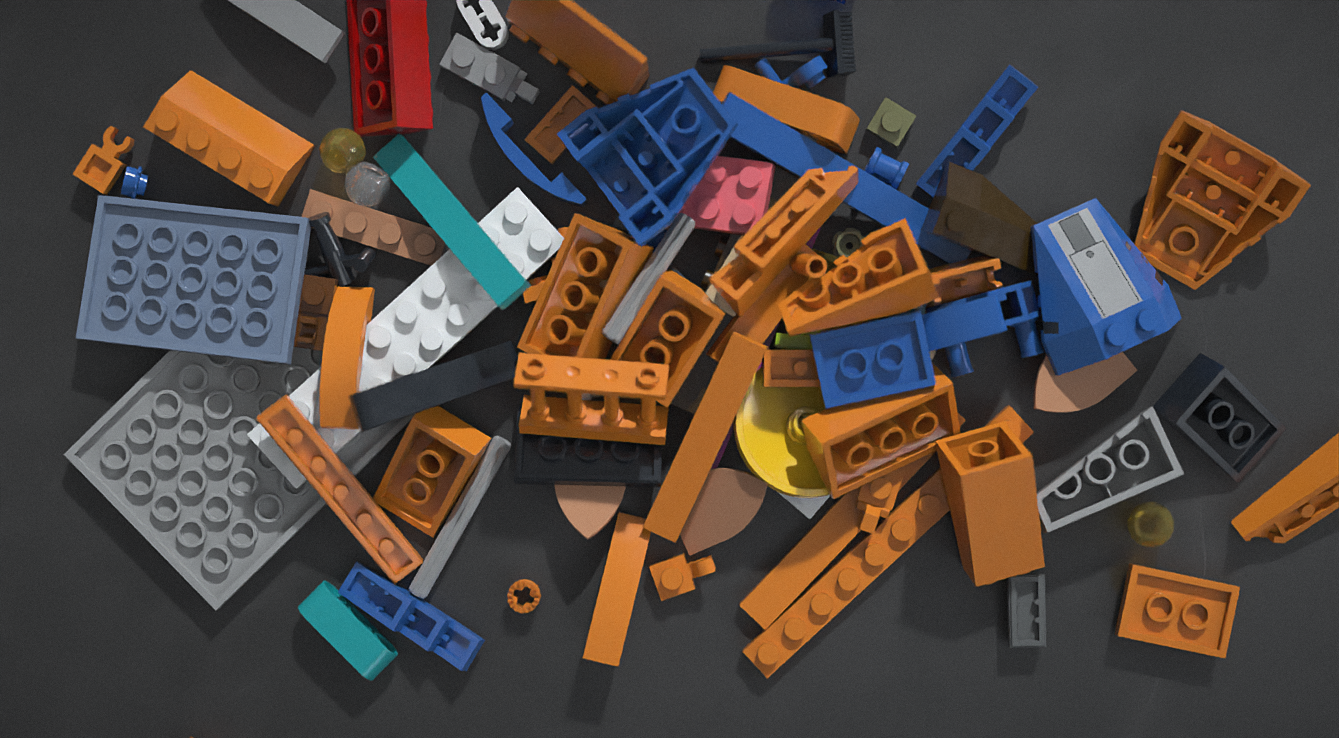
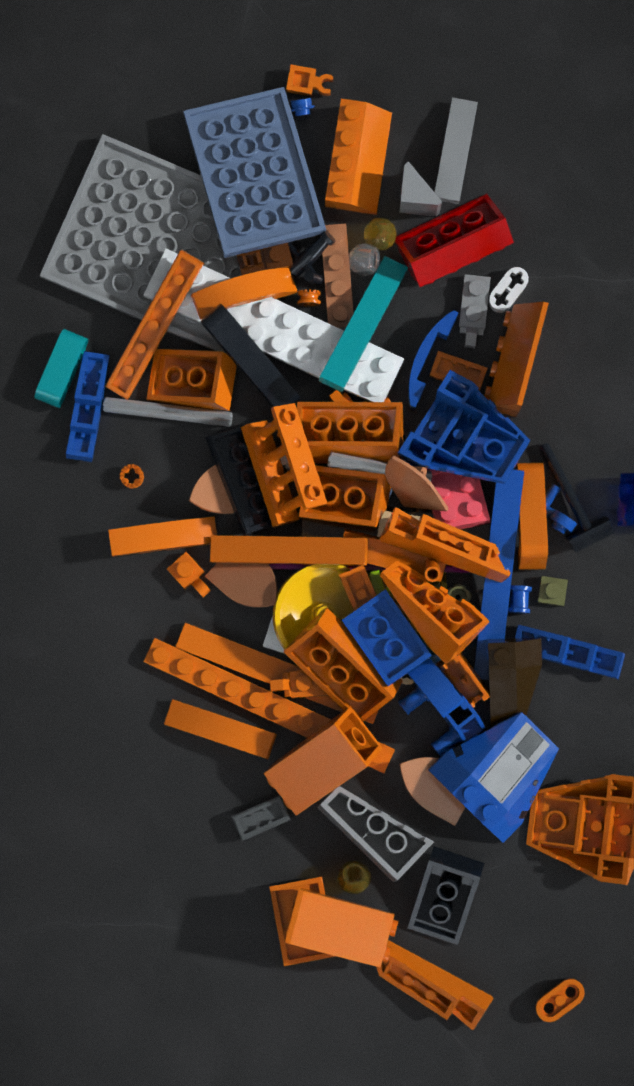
camera: 65 degrees right, 5 degrees down
(310, 80) = (417, 195): none -> light grey slope
(388, 276) = (309, 298): none -> orange bush
(690, 245) = (412, 486): none -> nougat shield
(894, 616) = (220, 729): none -> orange slope
(1215, 570) = (341, 928): none -> orange slope

